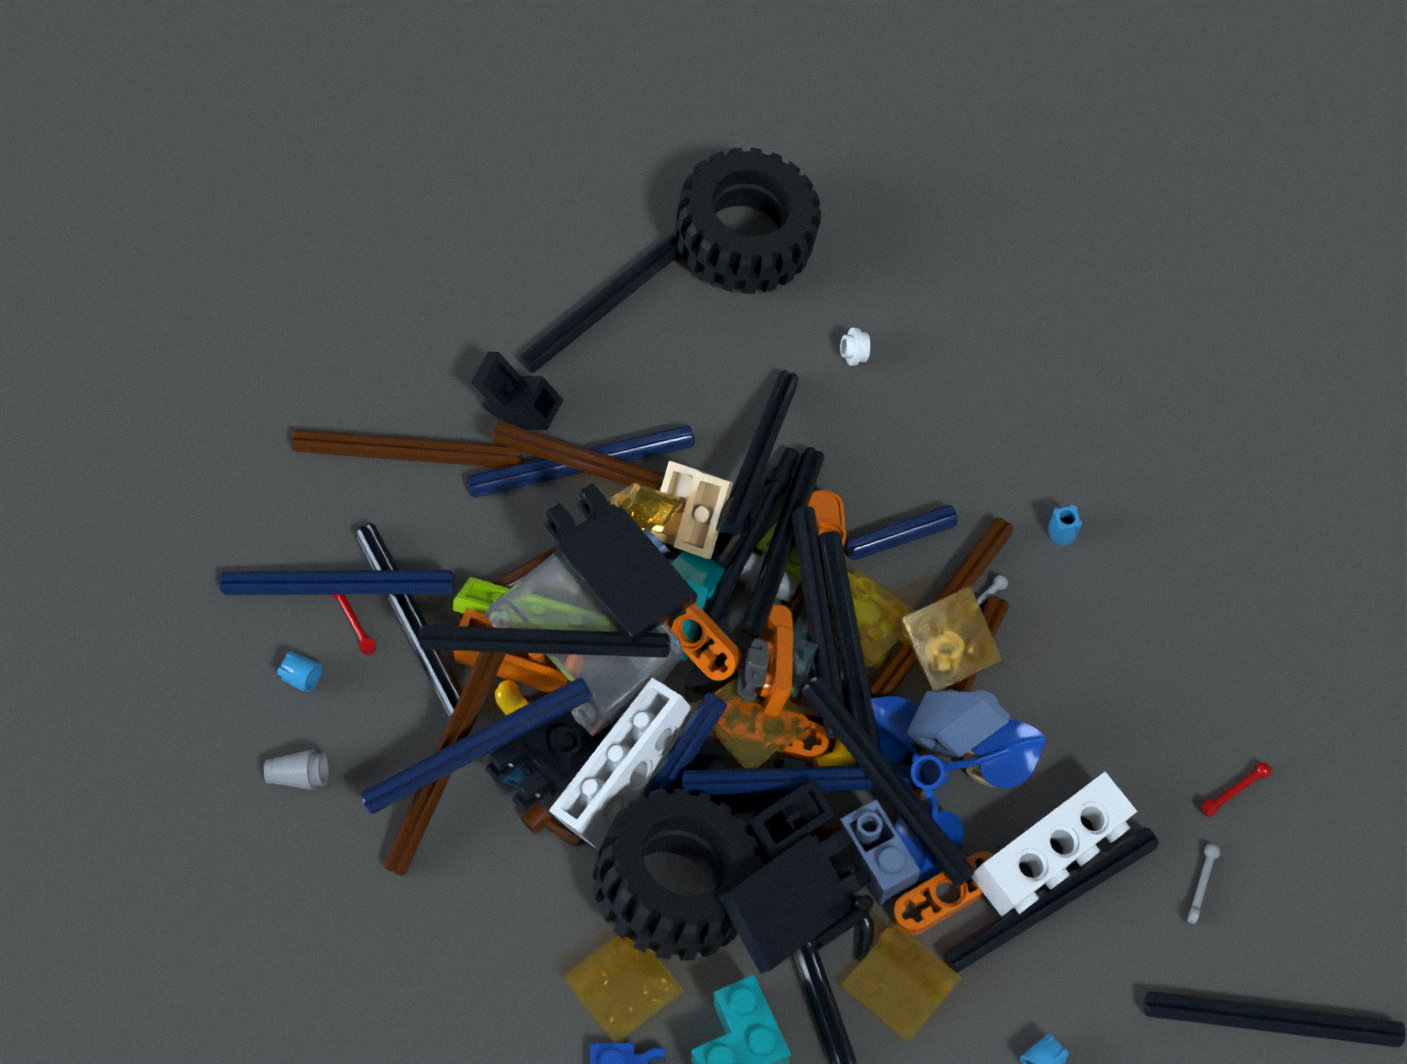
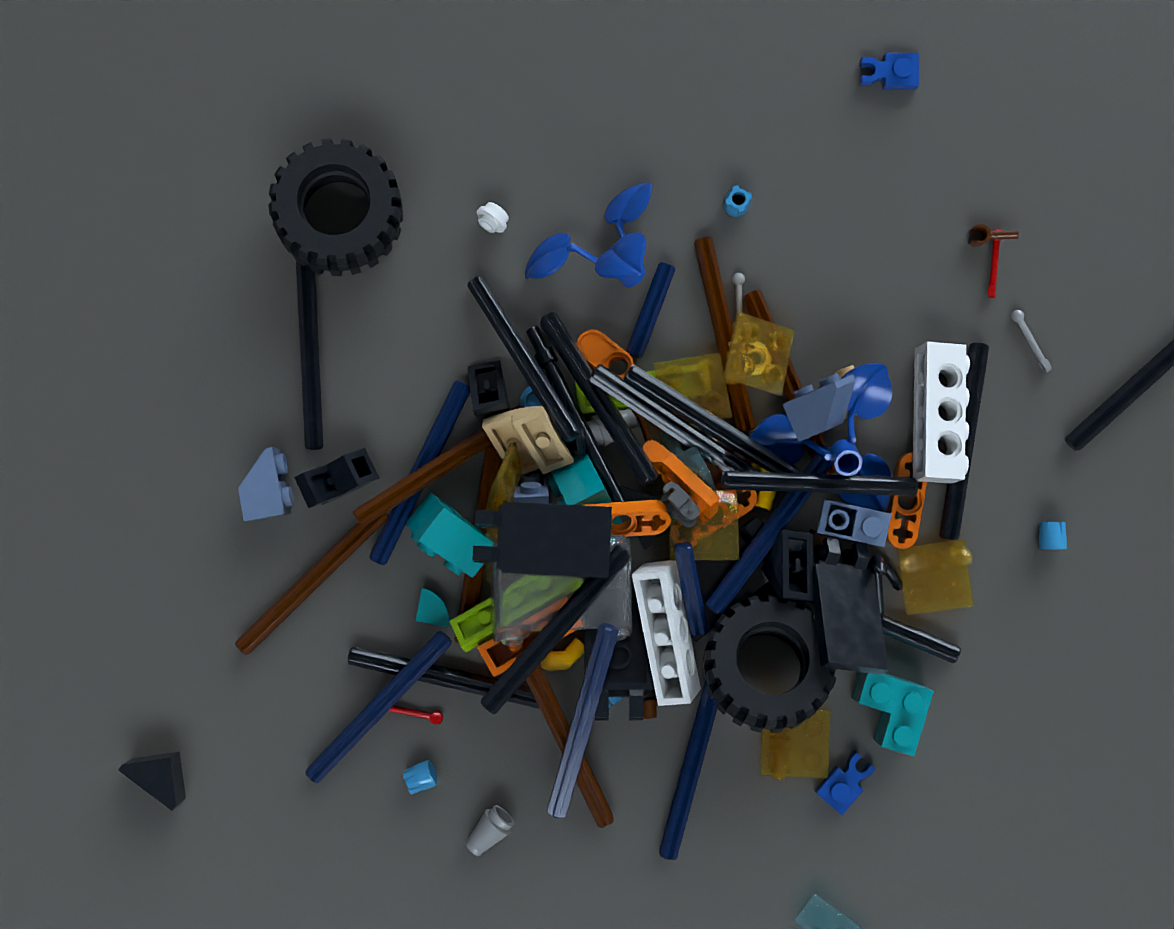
camera: 45 degrees left, 25 degrees up
(121, 459) = (158, 776): none -> black slope
(456, 349) = (264, 488): none -> sand blue slope
(466, 562) = (432, 609): none -> teal tile
(499, 912) = (689, 776): none -> dark blue axle
(535, 498) = (444, 531): none -> teal brick
(706, 452) = (488, 389): none -> black slope
(918, 472) = (620, 261): none -> blue plant
(1255, 760) = (988, 234): none -> reddish brown hand
(1306, 565) = (896, 71): none -> blue plate

